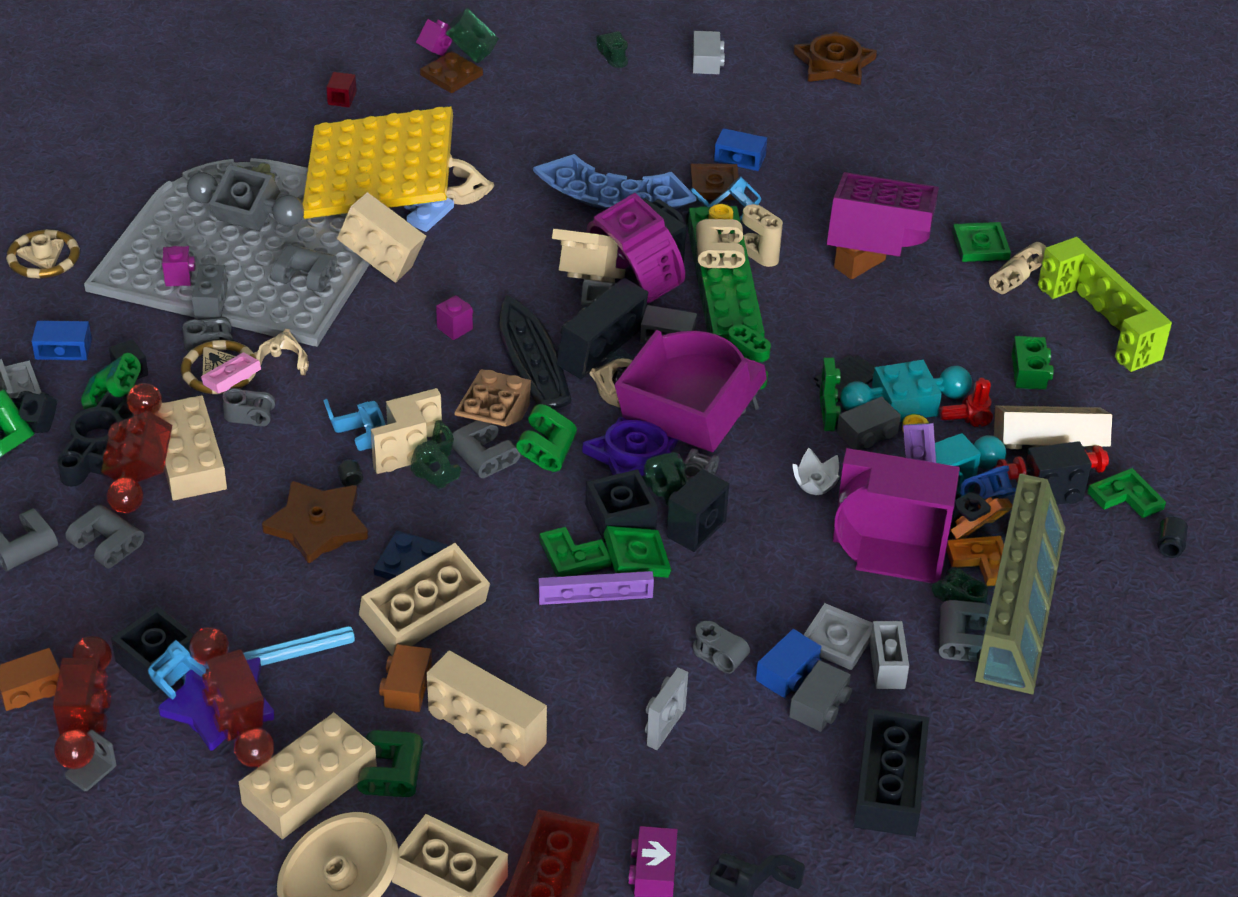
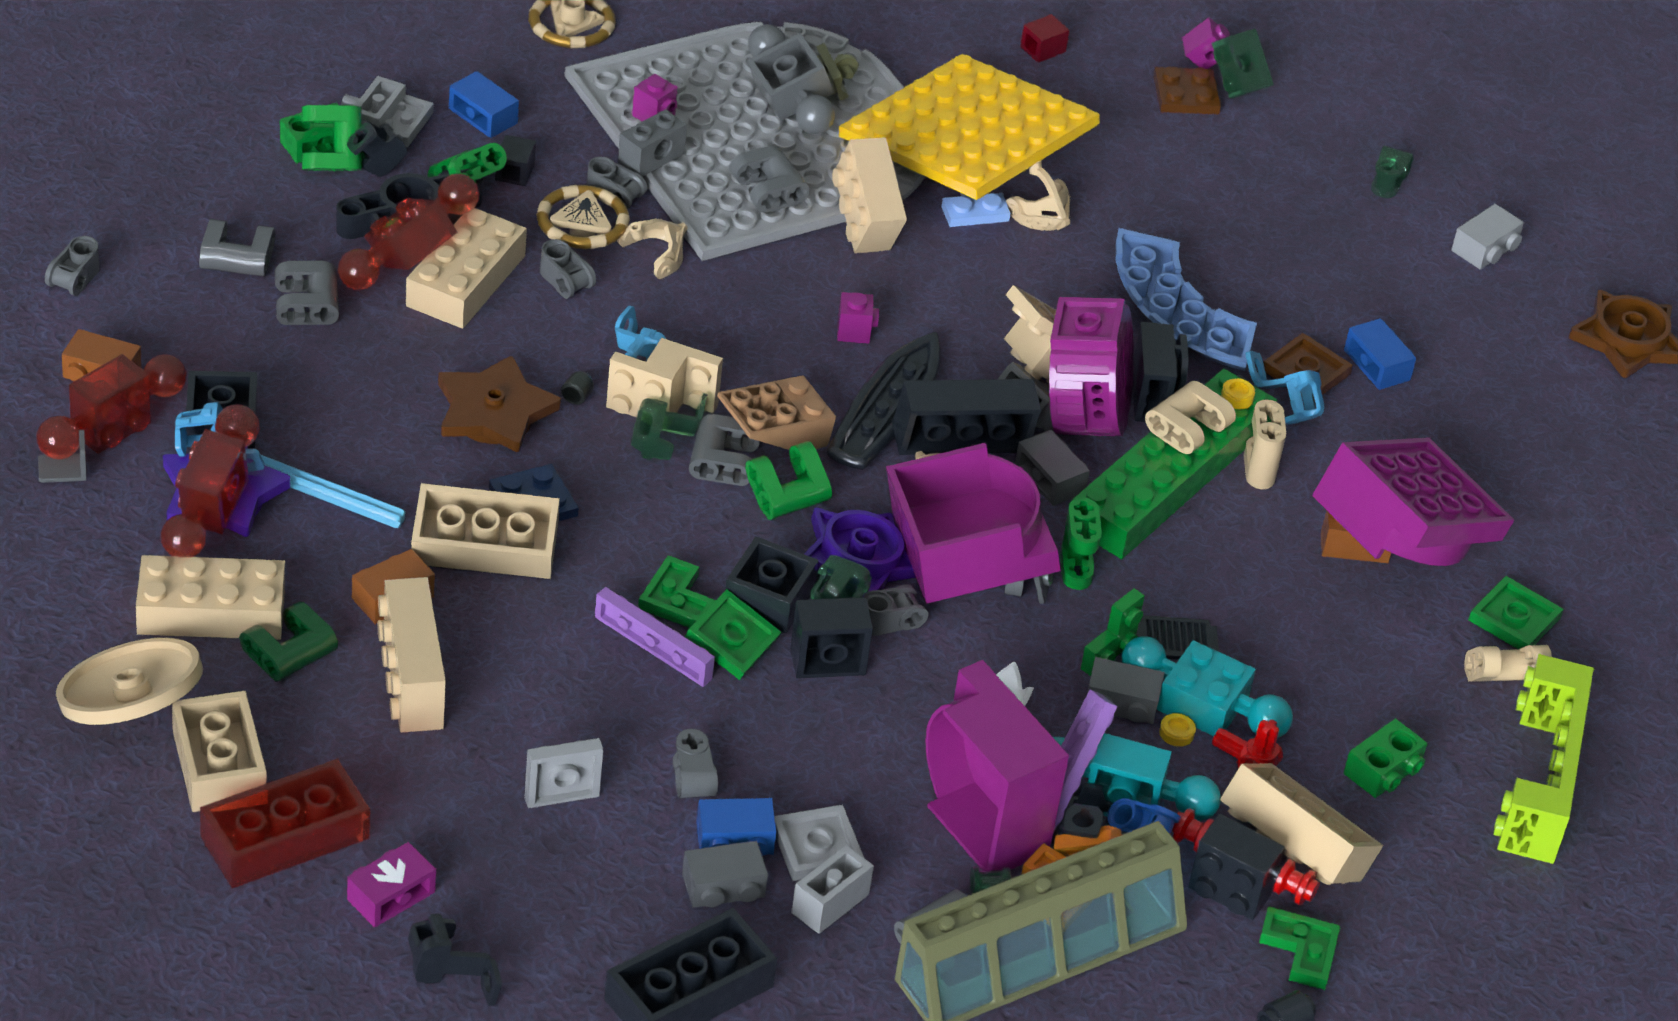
camera: 40 degrees right, 0 degrees up
(231, 373) = (570, 224): bright pink plate -> none

